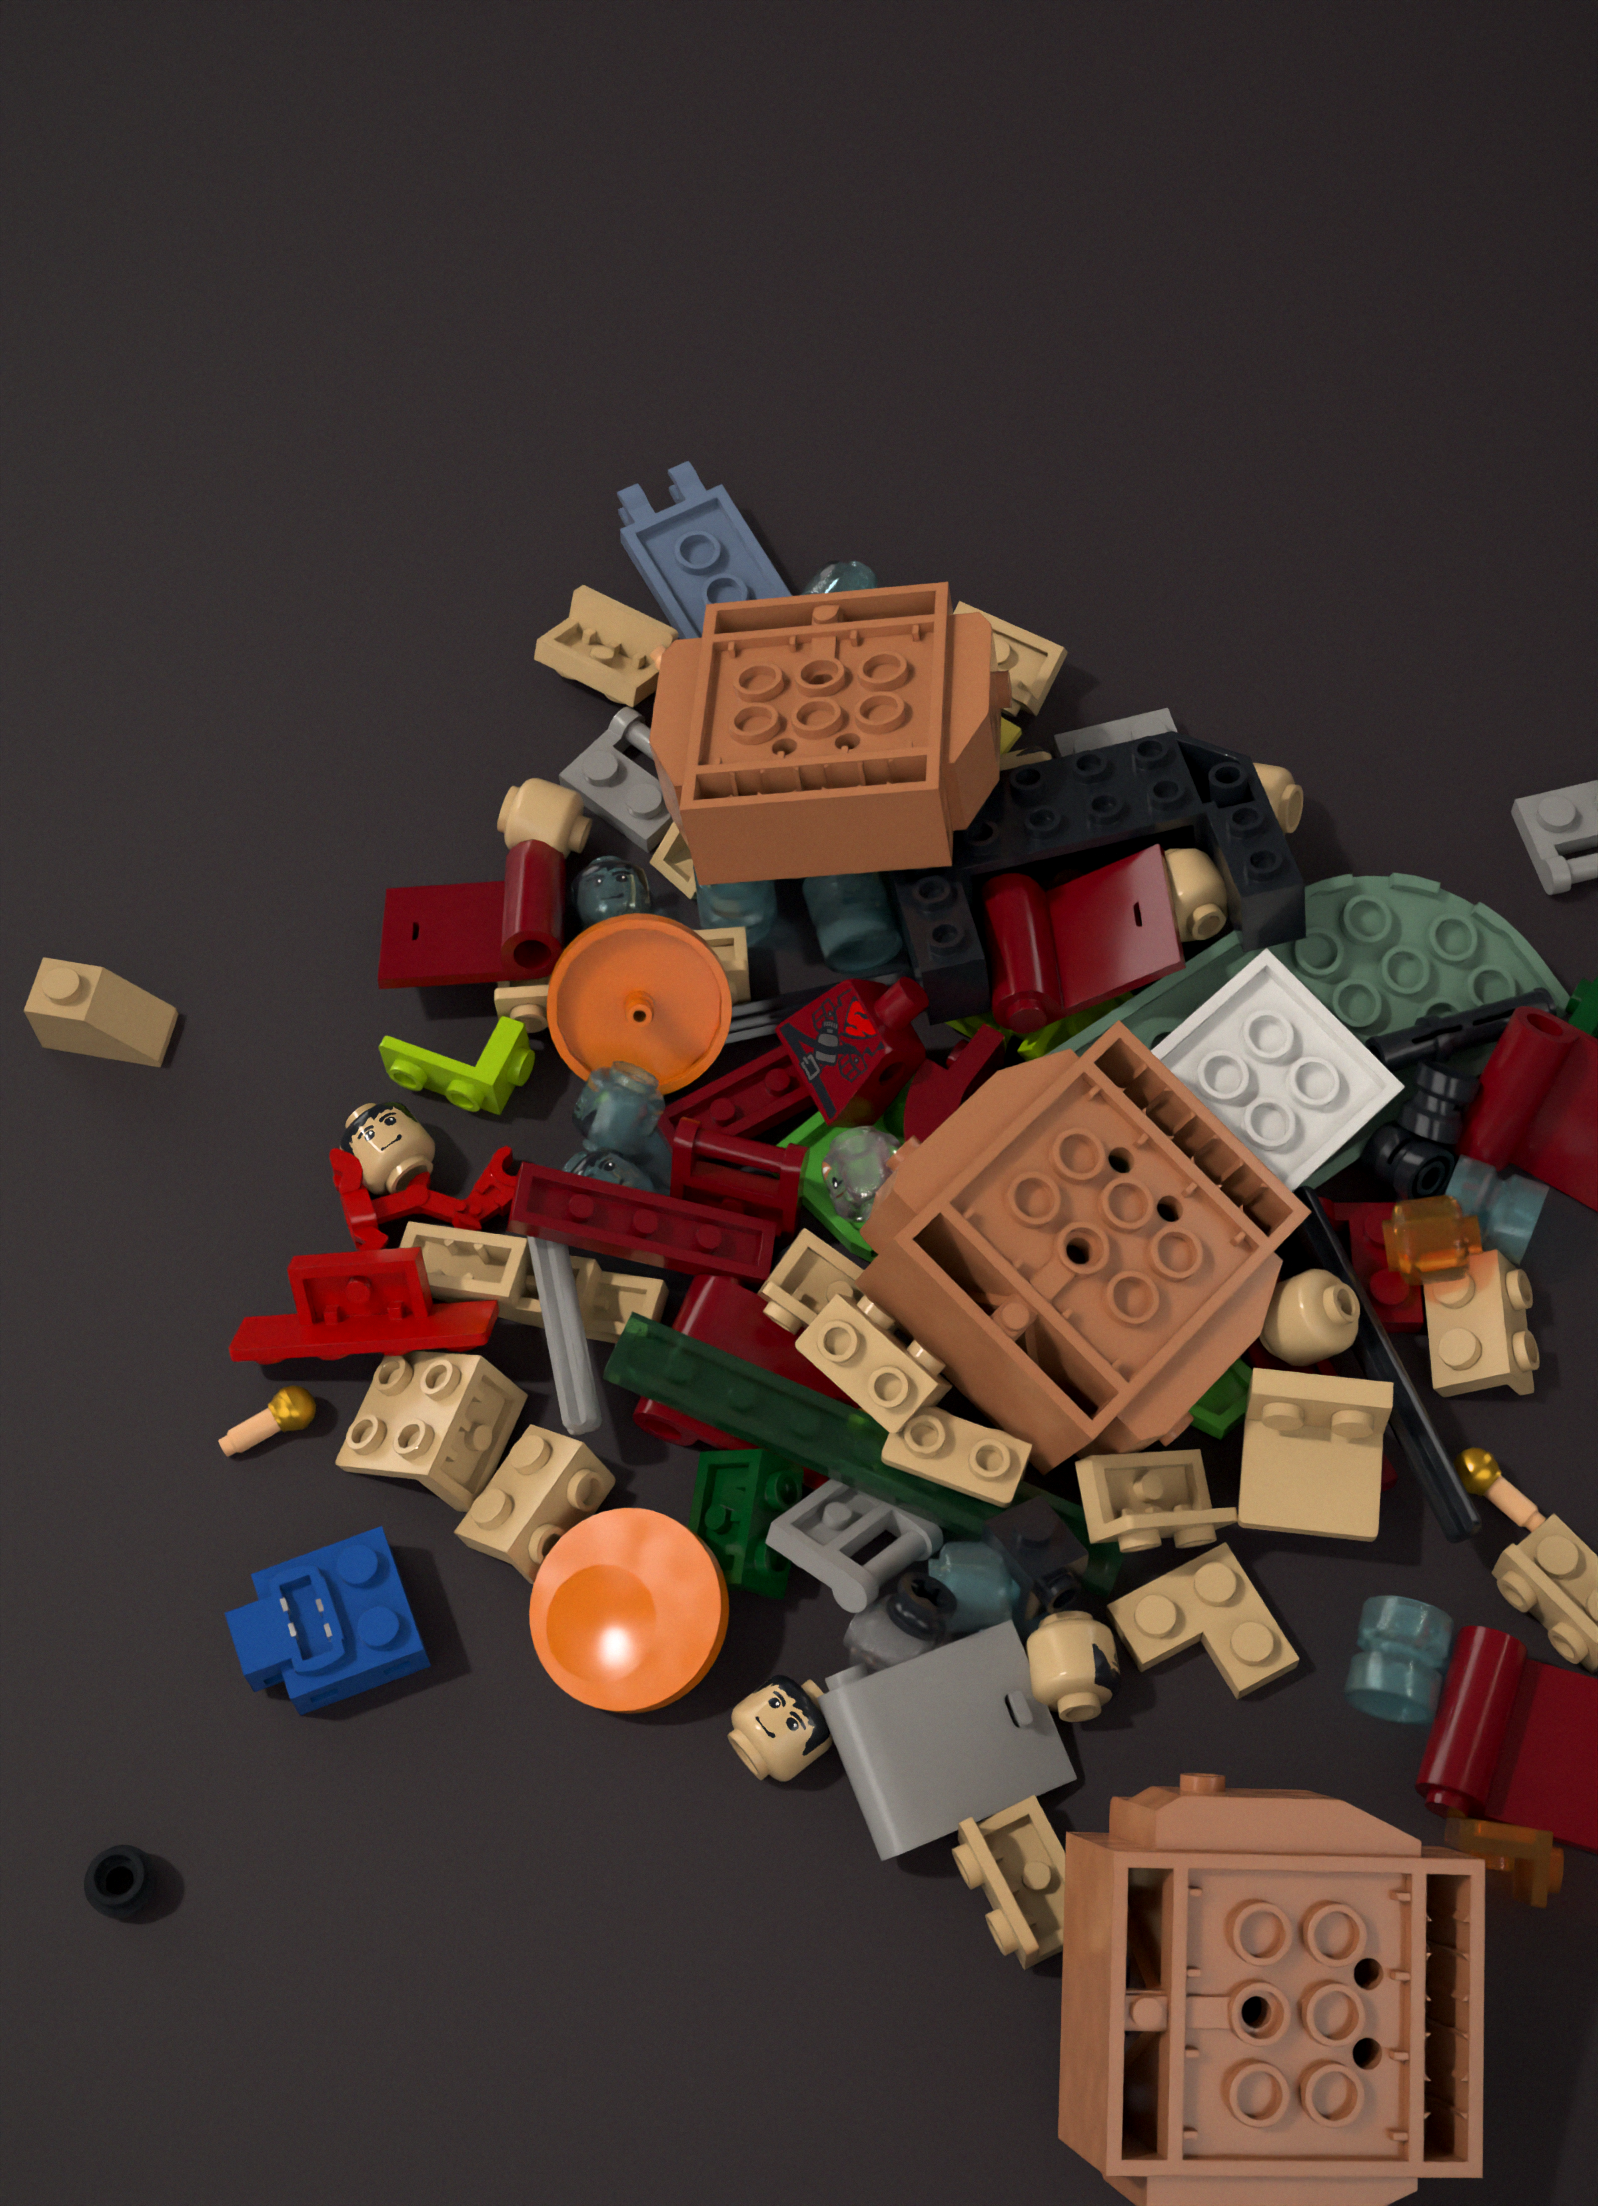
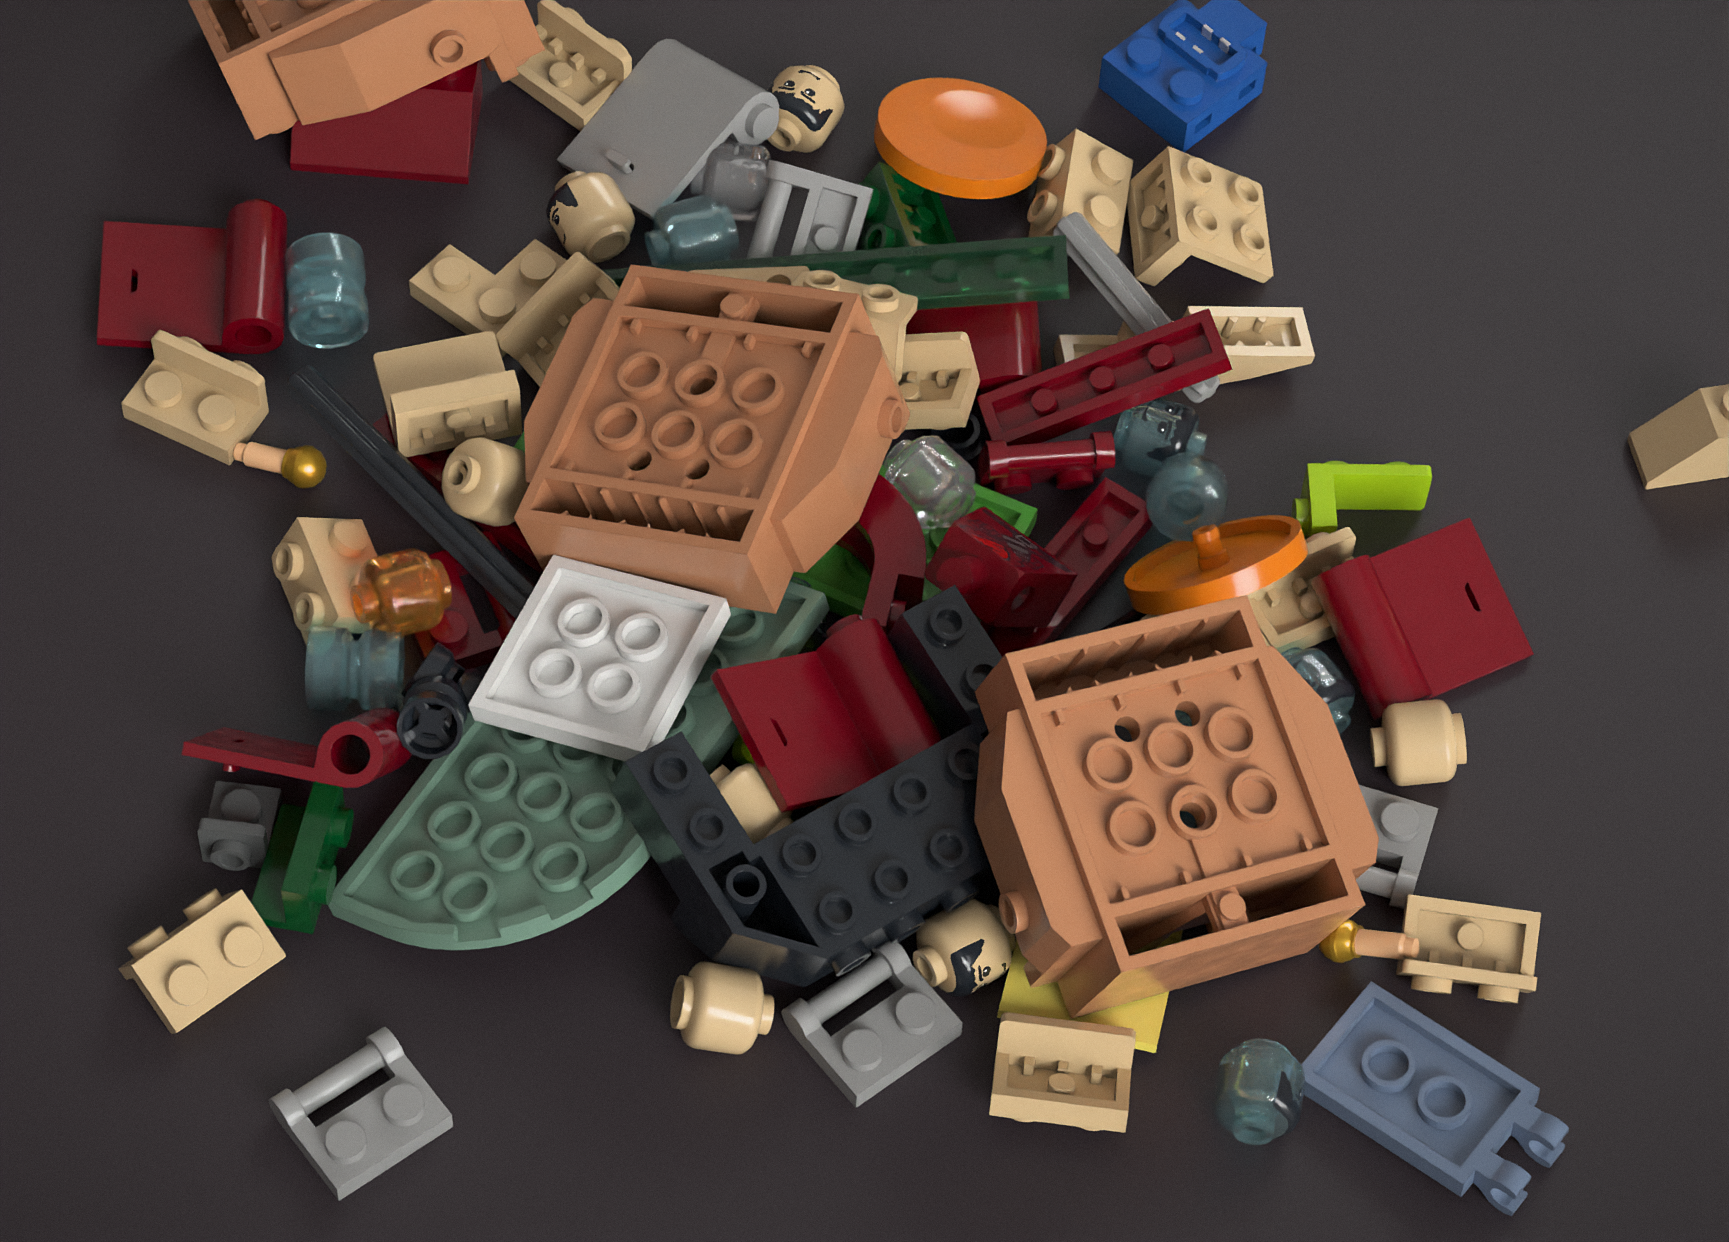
camera: 150 degrees right, 5 degrees down
(288, 1411) = (1322, 203): piece -> none
(362, 1306) = (1296, 260): red bracket -> none
(389, 1146) = (1373, 414): tan head -> none
(488, 1198) = (1357, 354): red piece -> none
(921, 1606) = (721, 155): black bush -> none
(1039, 1556) = (649, 241): black bracket -> none
(1439, 1038) = (450, 781): black pin -> none
(1537, 1861) = (207, 160): clear orange bracket -> none

